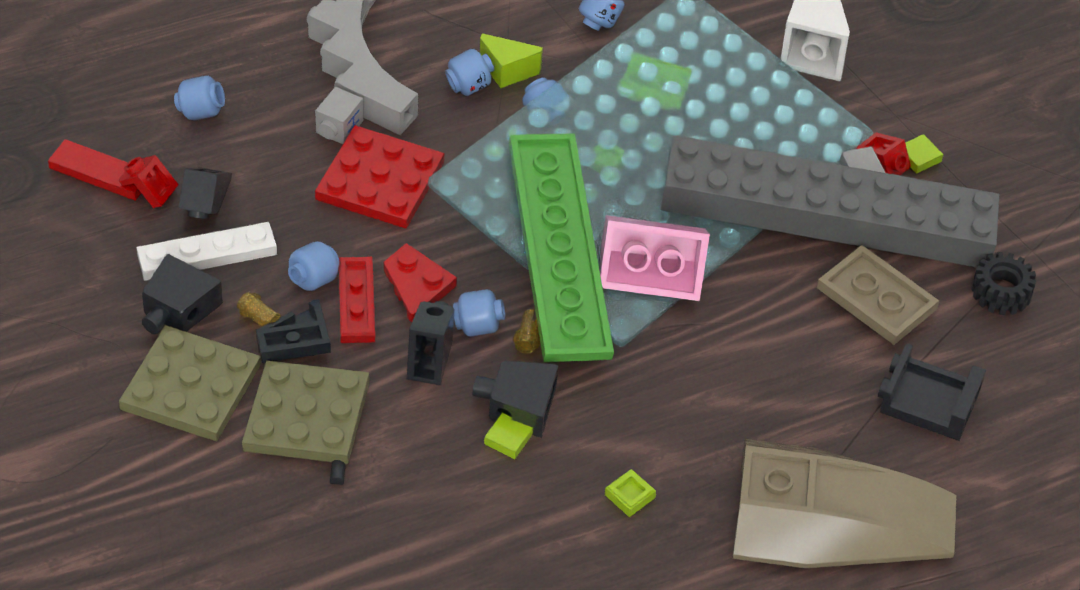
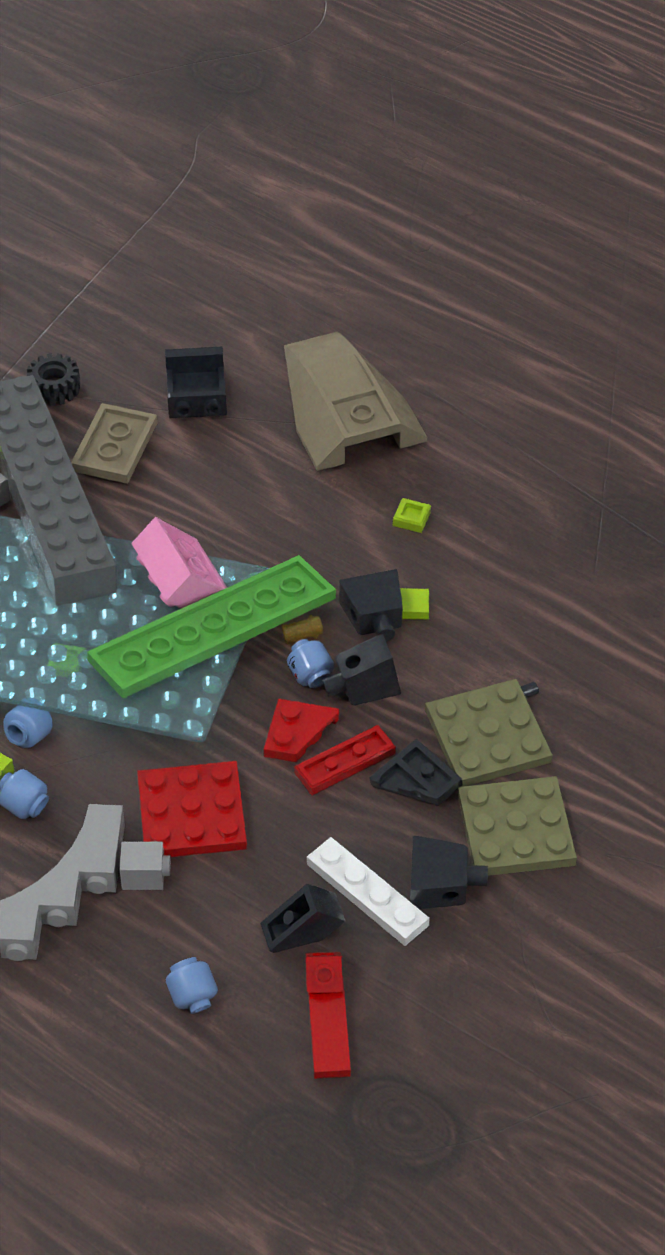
camera: 115 degrees left, 0 degrees up
(252, 306) = (409, 820): clear yellow pin -> none
(313, 266) = (338, 795): medium blue head -> none

